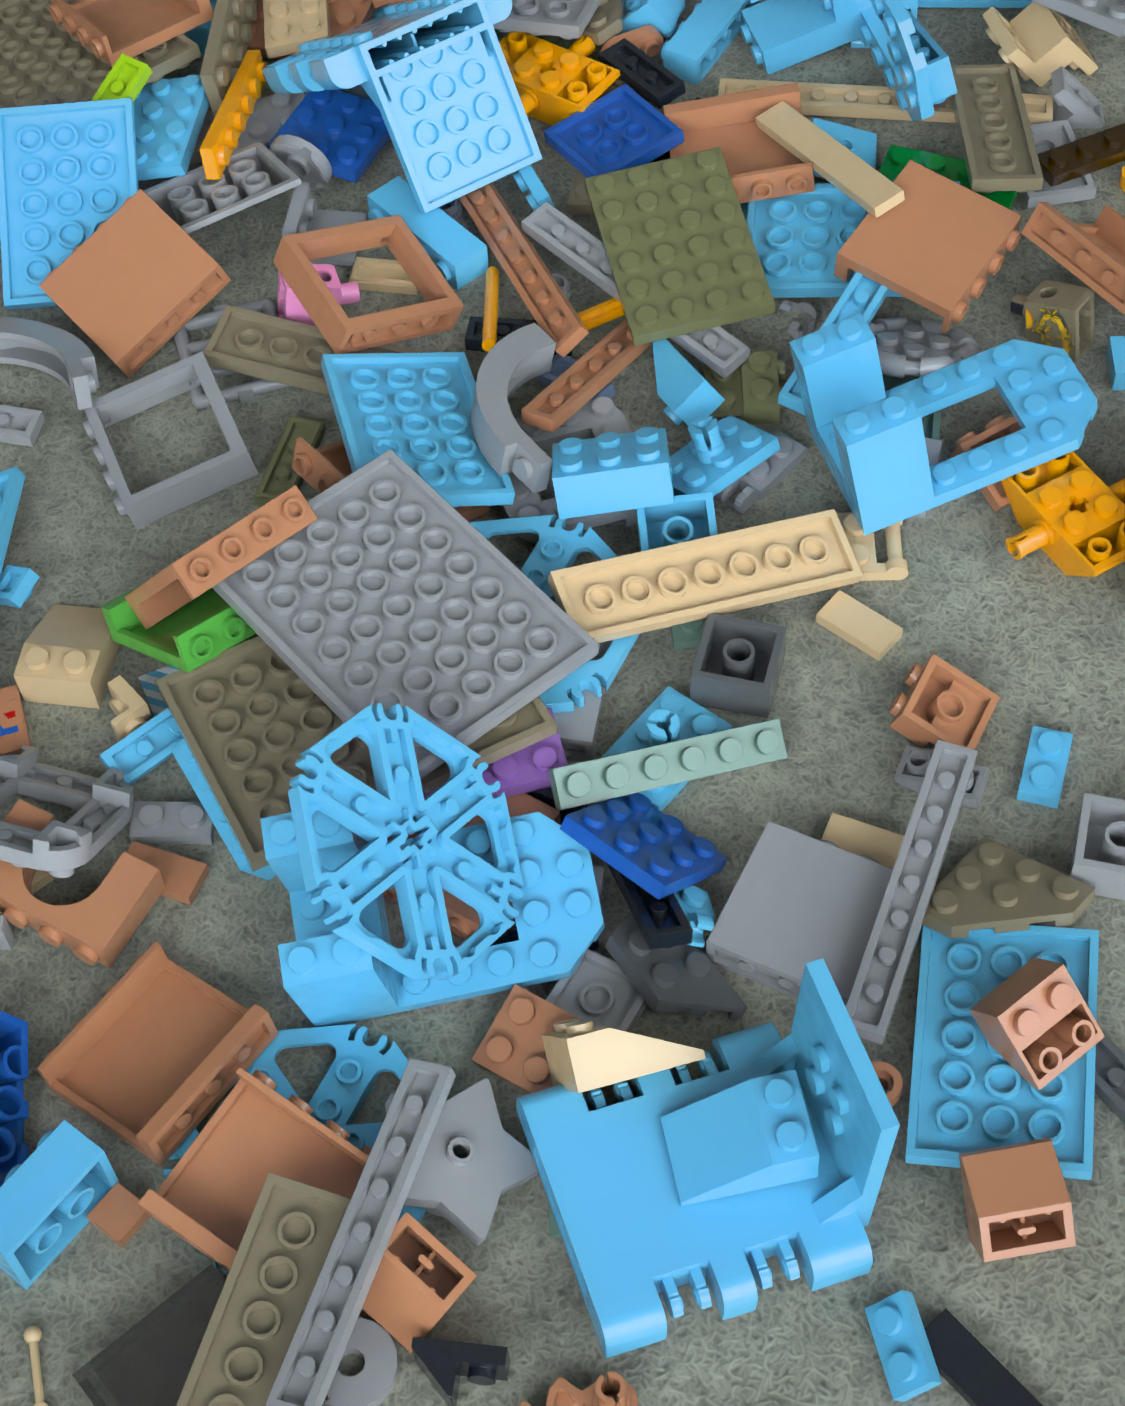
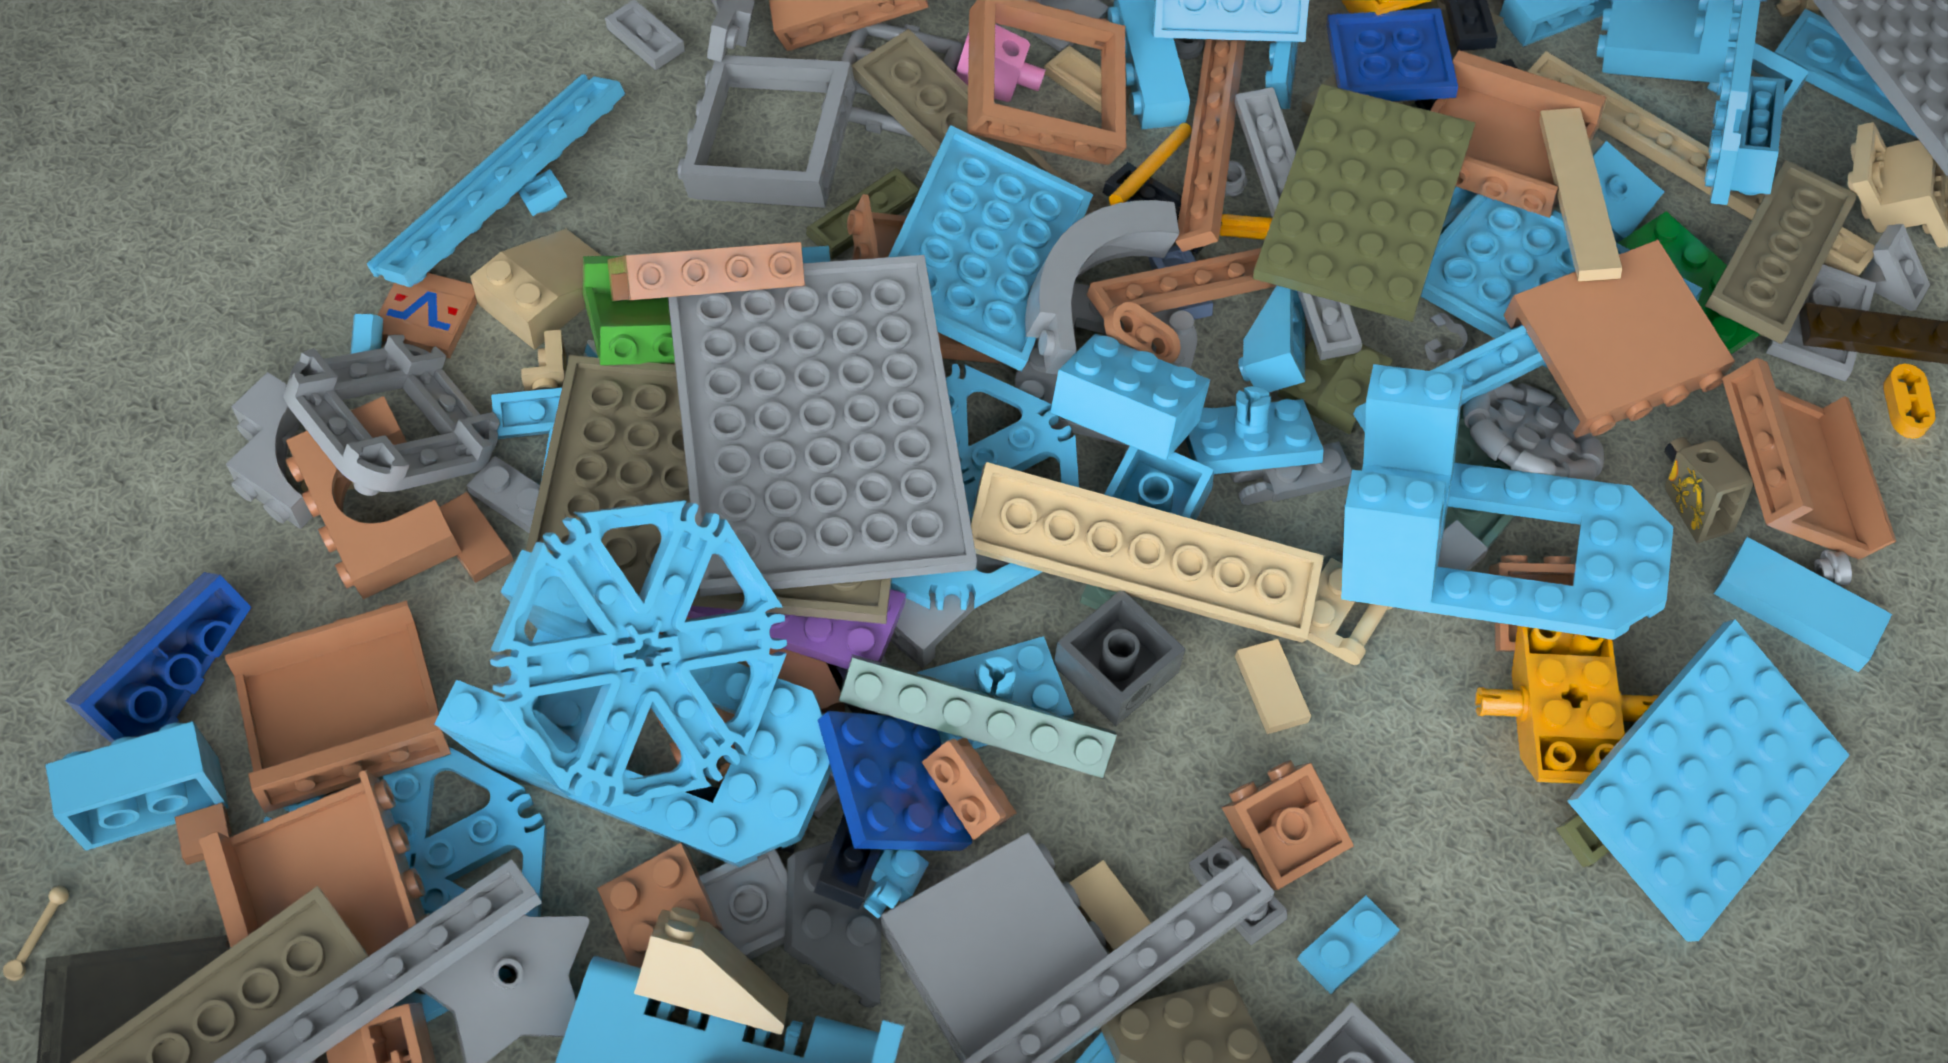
camera: 25 degrees right, 5 degrees up
(584, 422) = (1141, 330): none -> nougat plate
(700, 817) = (968, 787): none -> nougat bracket

